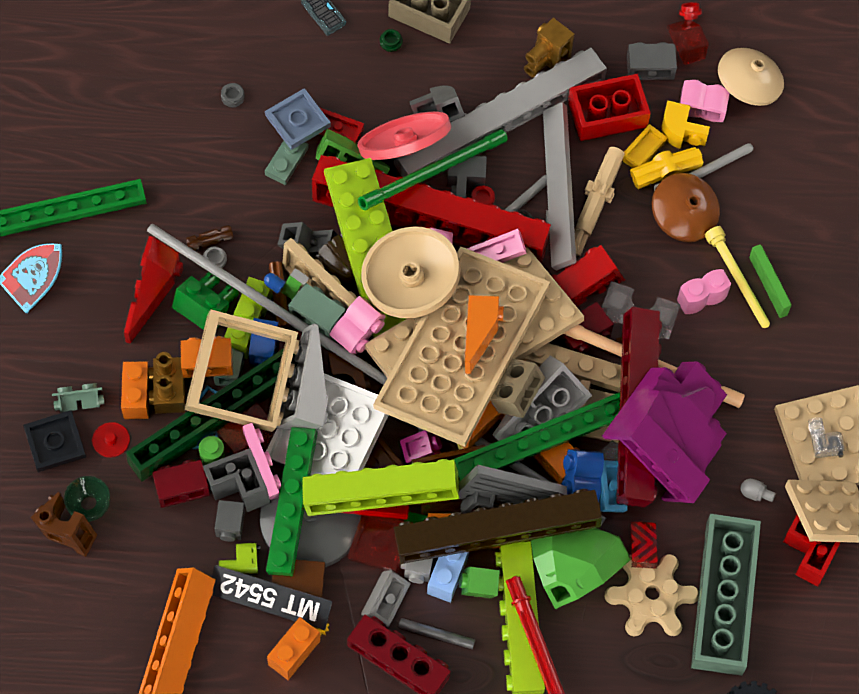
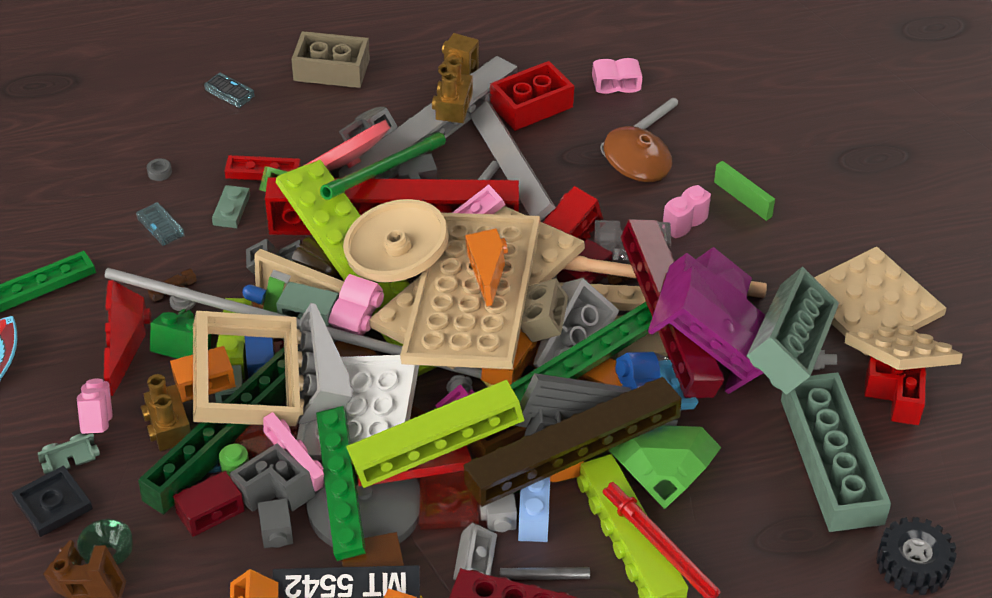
camera: 15 degrees left, 20 degrees down
(109, 361) = (94, 406): none -> bright pink brick
(110, 439) = (116, 487): red piece -> none
(135, 390) = (132, 430): orange brick -> none
(217, 161) = (160, 223): none -> clear light blue tile
(246, 559) = (304, 555): lime piece -> none
(297, 119) = (232, 165): sand blue plate -> none
(391, 40) = (302, 95): dark green plate -> none
(479, 582) = (573, 507): bright green brick -> none
(528, 96) = (453, 93): none -> pearl gold brick
(597, 193) = (551, 158): tan piece -> none
(643, 545) = (728, 432): tile -> none
(644, 147) = (576, 123): yellow tile -> none
(646, 610) = (757, 492): tan plate -> none
(652, 61) = (561, 53): dark grey brick -> none
(664, 165) = (601, 126): yellow piece -> none
(678, 129) = (603, 100): yellow brick -> none
(689, 40) = (584, 38): clear red slope -> none
(690, 10) = (574, 18): red plate -> none
(717, 238) = (677, 171): light yellow piece -> none
(737, 468) = (793, 331): none -> sand green brick
(751, 76) = (651, 47): tan dish -> none
(825, 443) = (865, 298): clear piece -> none

